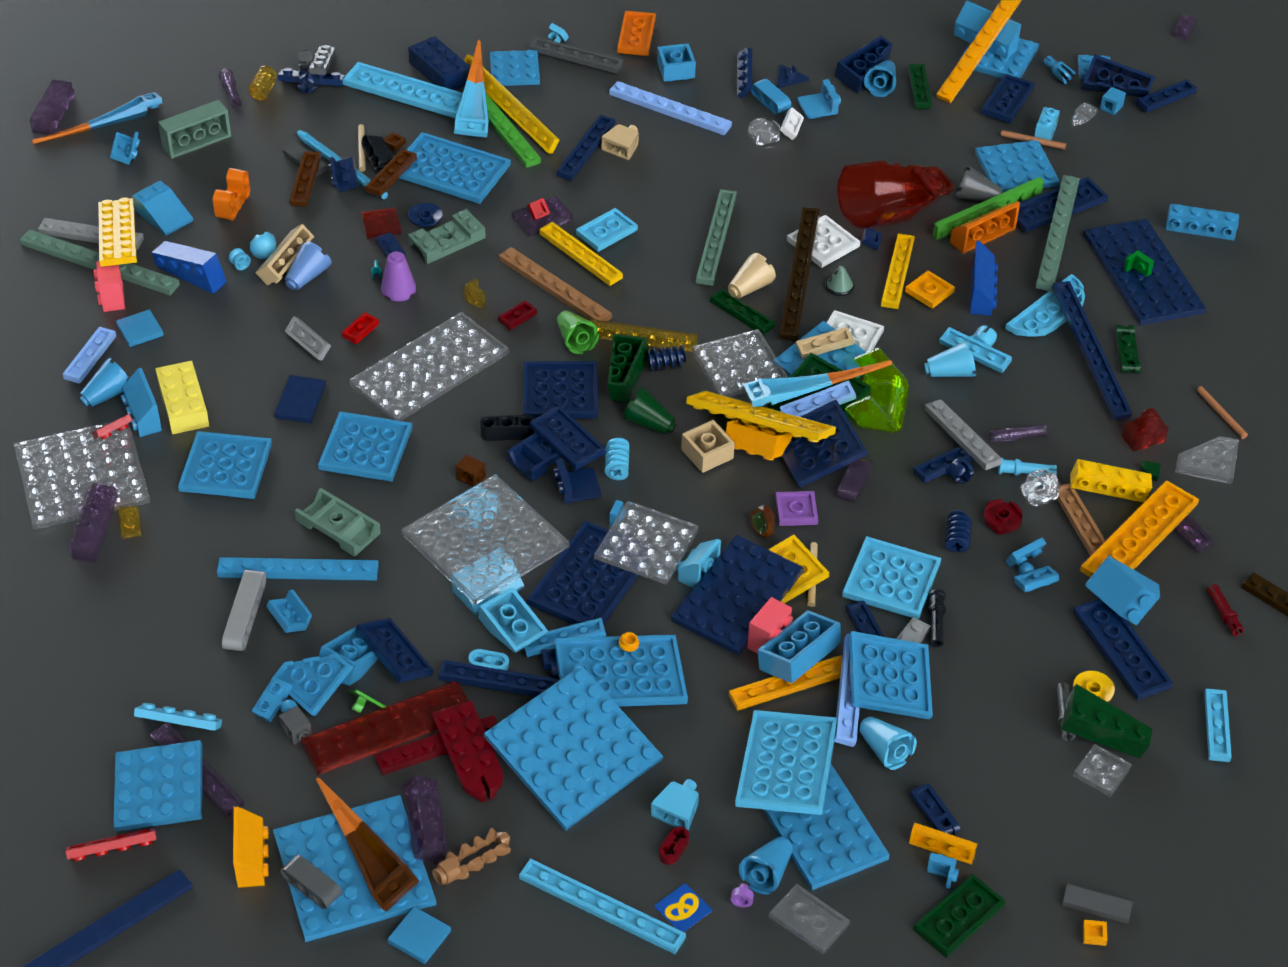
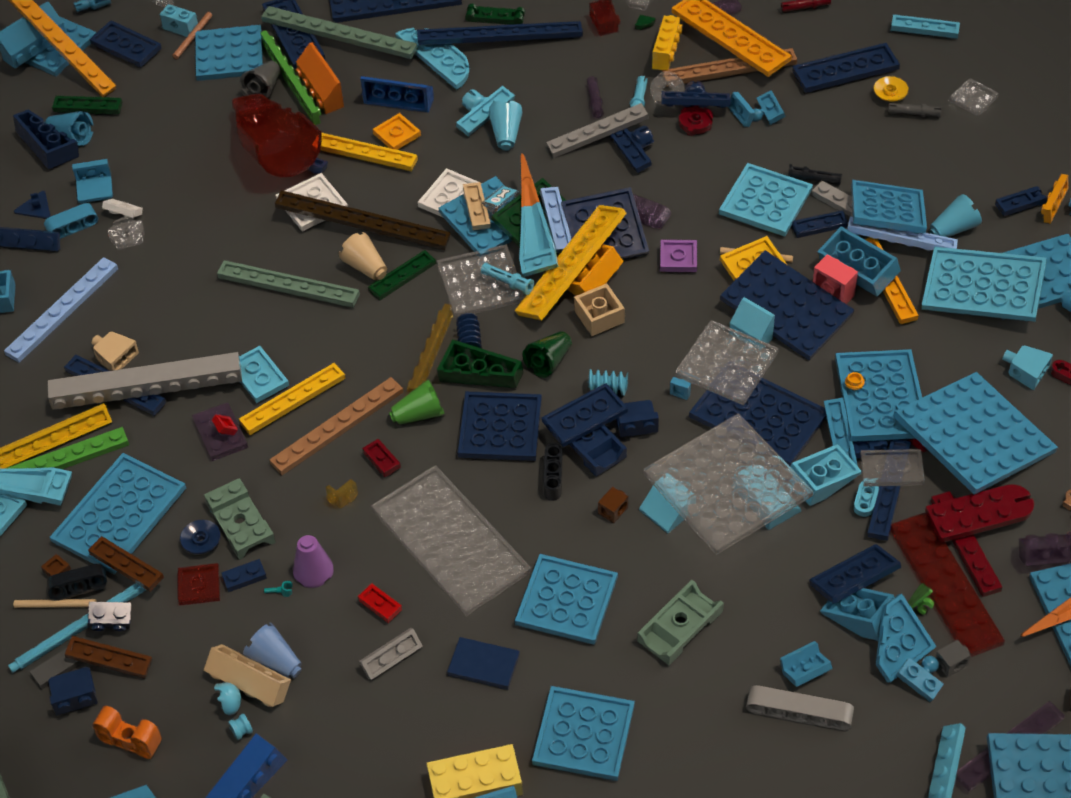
camera: 80 degrees left, 5 degrees up
(275, 167) = (72, 691): none -> dark blue bracket
(300, 568) = (738, 664): dark azure plate -> none
(521, 676) = (892, 467): none -> clear tile
(583, 159) = (144, 380): none -> light grey brick
(733, 379) = (514, 280): none -> medium azure pin
(763, 521) = (697, 278): reddish brown rock -> none
(835, 356) = (499, 198): none -> slope
(840, 282) = (374, 197): sand green hat -> none
(889, 392) = (567, 181): clear neon green windscreen -> none
(958, 531) = (717, 148): dark blue piece -> none
(1029, 509) = (695, 95): none -> dark blue plate
(1104, 723) = (934, 84): dark green wedge -> none
(1124, 589) = (803, 46): dark azure slope -> none

